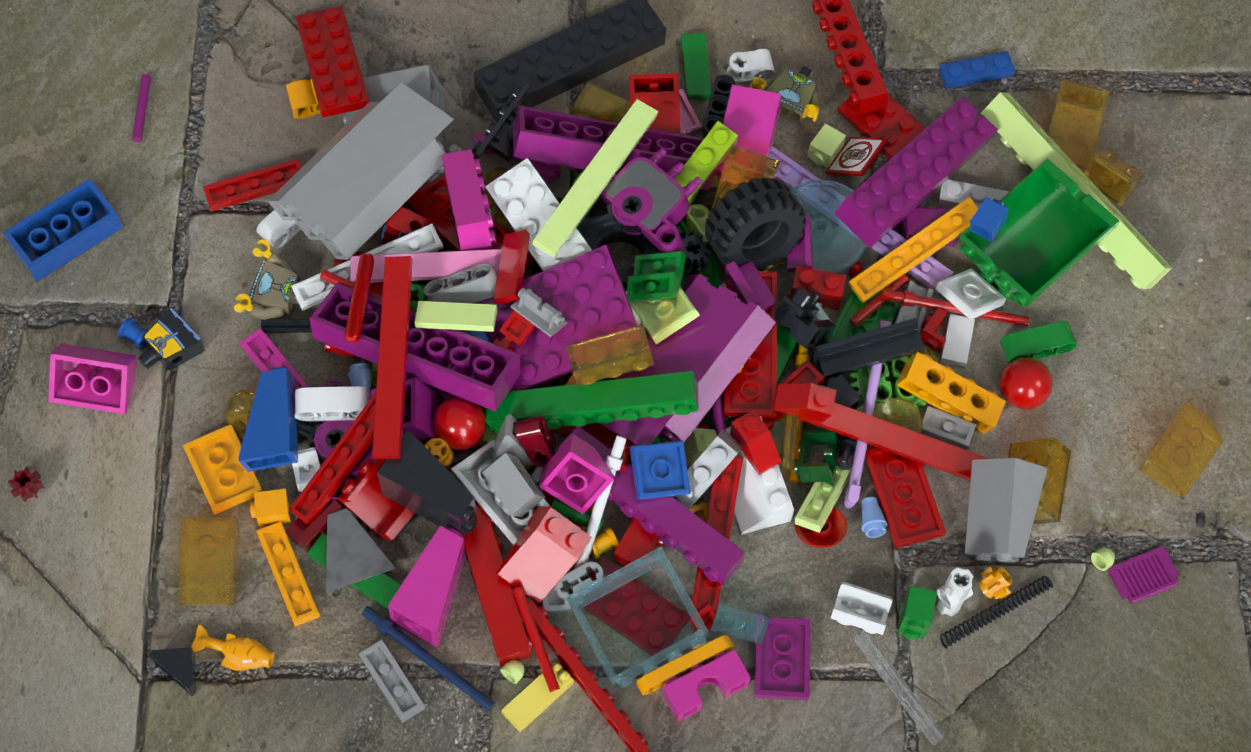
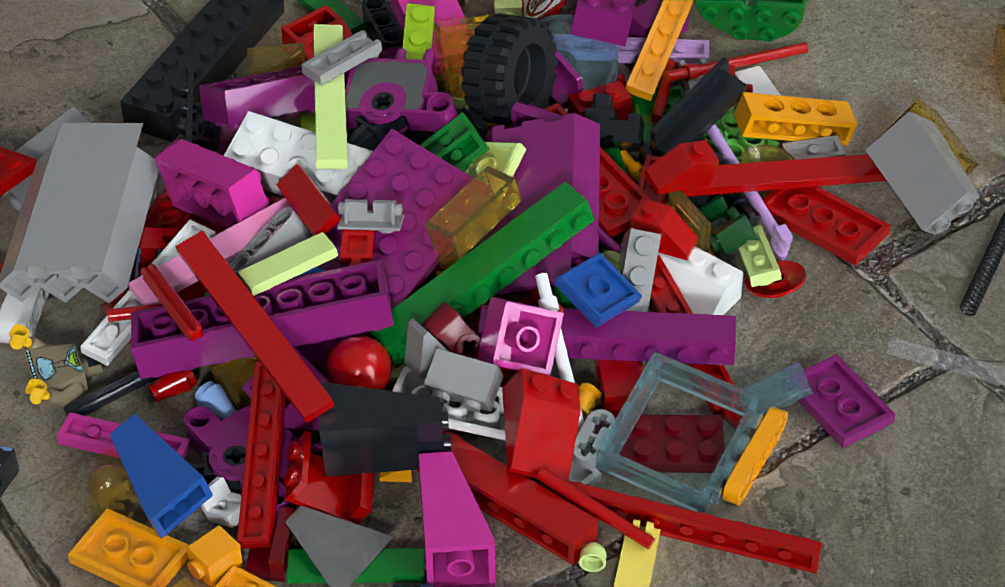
camera: 30 degrees left, 20 degrees down
(330, 403) = (208, 422): white beam -> none
(625, 150) = (341, 58): none -> light grey hinge
(724, 671) = (797, 440): dark pink arch -> none
(861, 608) = (873, 318): white bracket -> none
(872, 518) = (816, 251): light blue cone -> none
(916, 613) = (927, 291): green brick -> none
(954, 591) = (948, 251): white piece -> none
(970, 293) = (740, 45): white tile -> none
(995, 582) = (970, 238): light orange gear -> none
(1026, 383) = (851, 80): red piece -> none
(1039, 342) = (830, 54): green beam -> none

